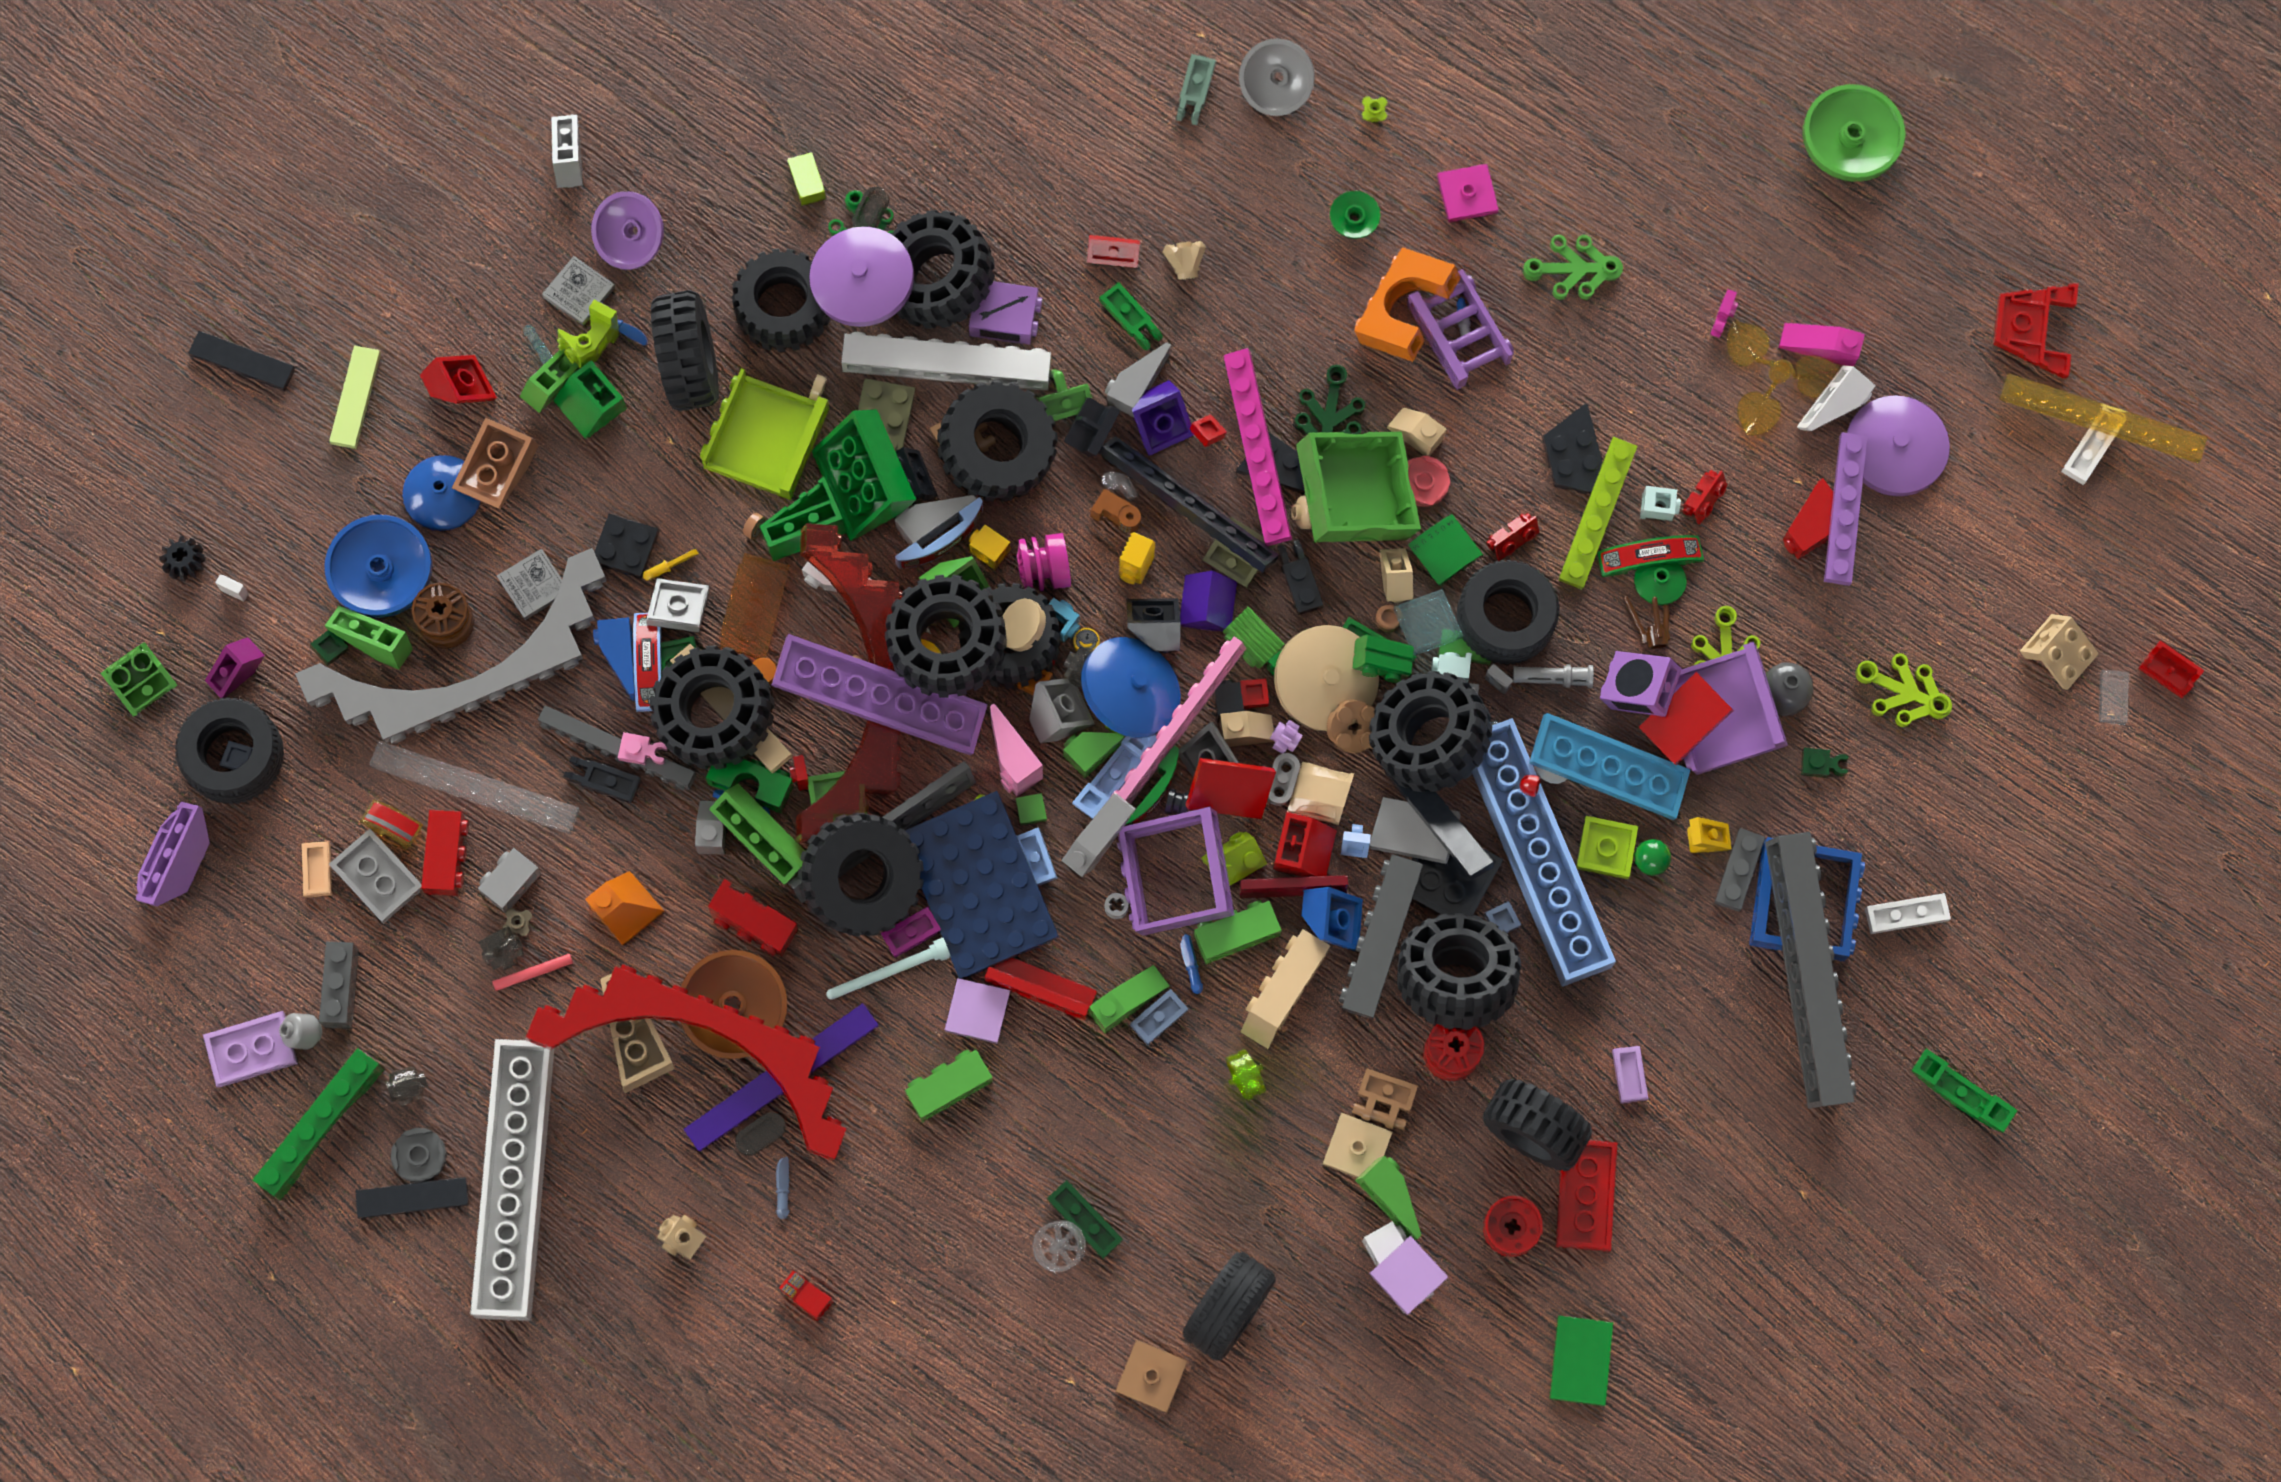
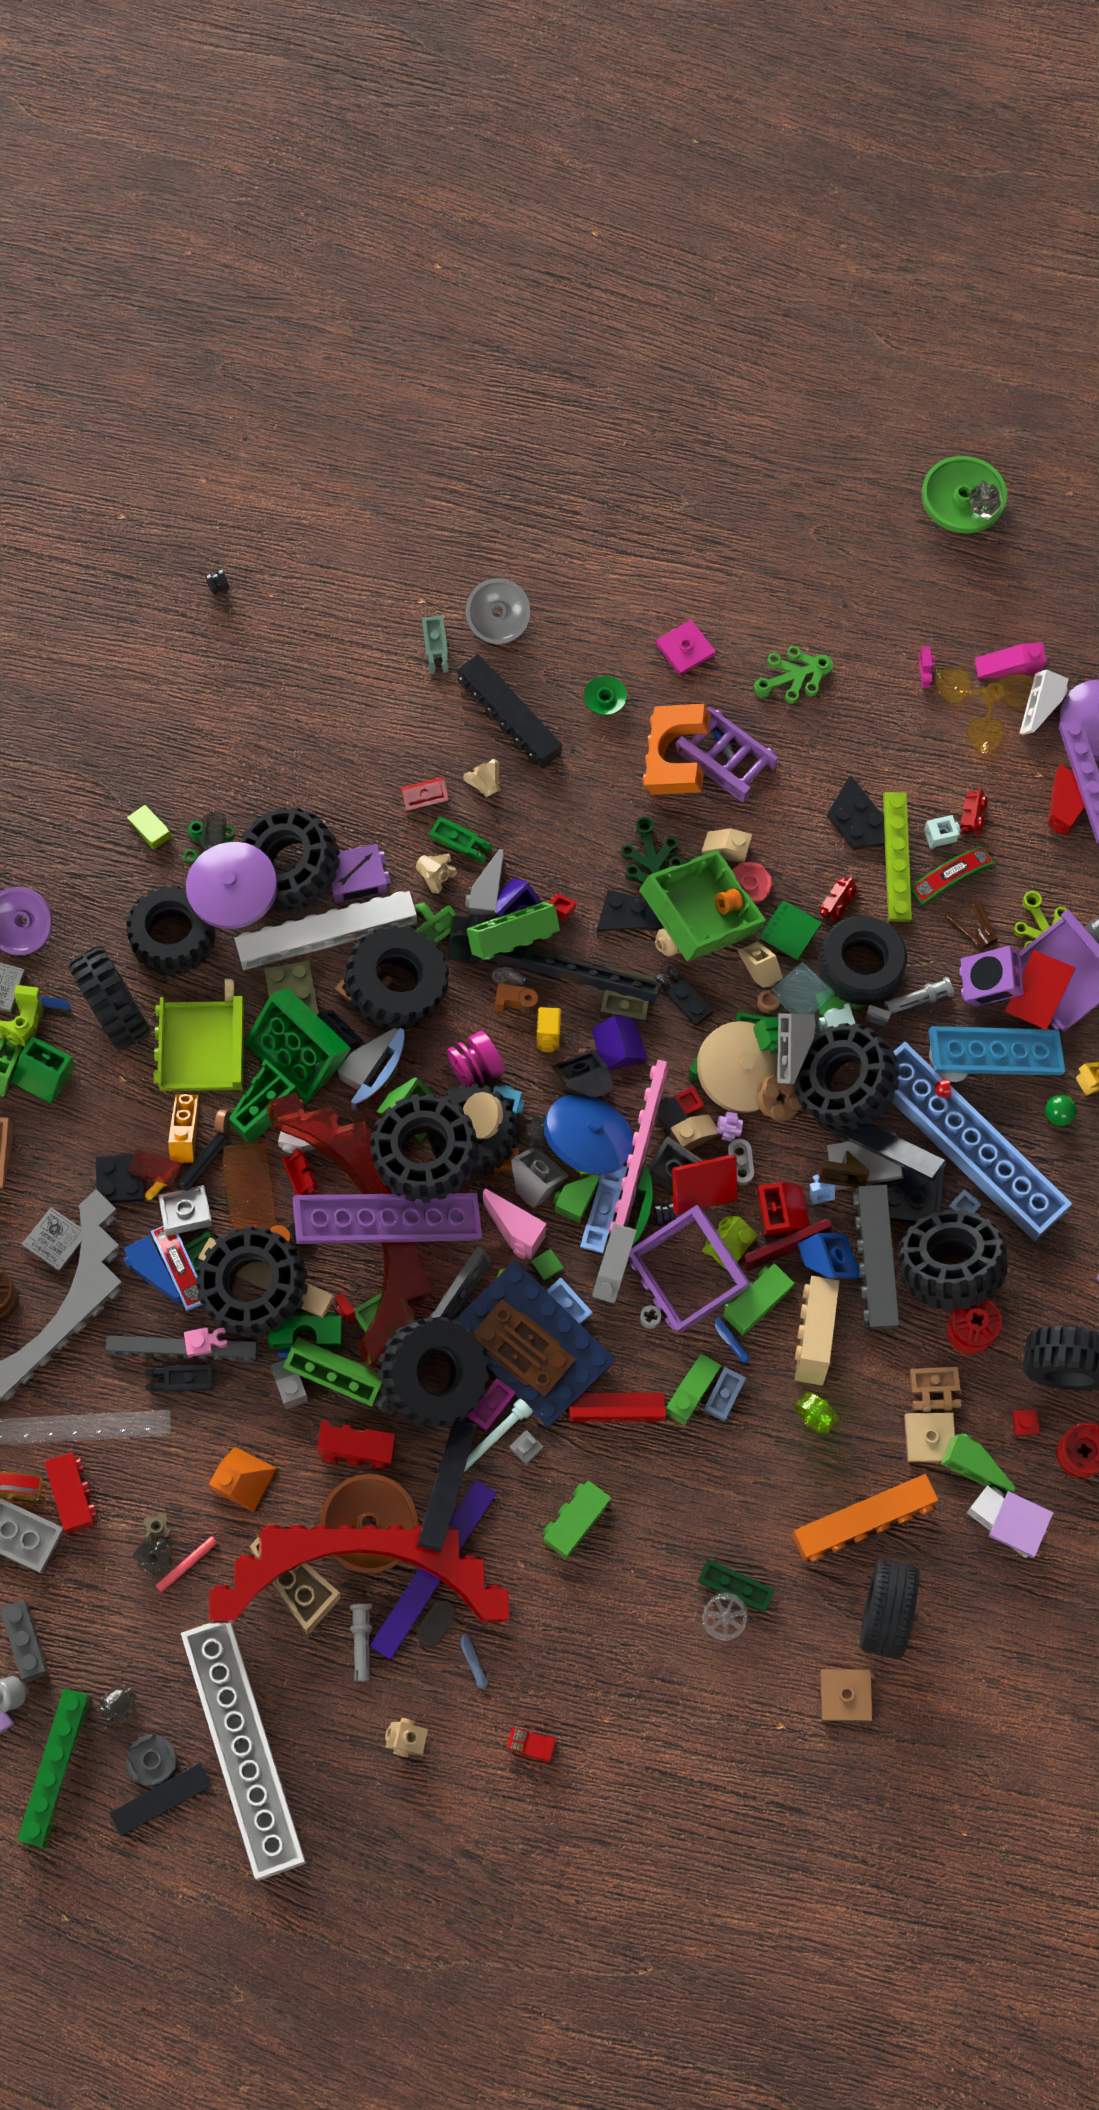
camera: 20 degrees left, 5 degrees down
(509, 880) = (135, 1494): light grey hinge -> none
(663, 548) = (154, 1168): none -> clear red tile
(680, 1111) = (361, 1630): none -> light grey pin
(710, 518) = (183, 1128): none -> light orange slope
(716, 561) = (202, 1161): none -> black axle
(810, 616) = (302, 1181): none -> red hinge
(827, 997) = (447, 1486): none -> black tile
(929, 990) = (526, 1447): none -> light grey tile
(966, 886) = (523, 1348): none -> reddish brown piece
(977, 1011) = (573, 1448): lavender tile -> none
(989, 546) = (423, 1065): yellow brick -> none
(1086, 638) = (533, 1108): tile -> none
(1089, 340) = (435, 870): none -> tan rock
(1143, 437) = (513, 930): none -> bright green brick
(1243, 194) = (509, 711): none -> black brick
(1250, 1204) = (865, 1517): none -> orange brick
(1256, 636) = (677, 1056): bright green brick -> none
(1257, 447) = (607, 905): dark pink plate -> none
(1320, 793) = (777, 1161): tan slope -> none
(1371, 115) = (584, 614): lime plate -> none
(1388, 837) = (848, 1173): none -> dark brown slope
(1389, 493) = (728, 901): none -> orange wheel
(1390, 671) = (794, 1041): none -> light grey slope
(1465, 1173) = (1025, 1422): none -> red plate
(1607, 847) = (1021, 1116): lime plate -> none
(1666, 590) = (963, 899): green dish -> none
(1871, 148) = (985, 499): none -> clear smoke brick

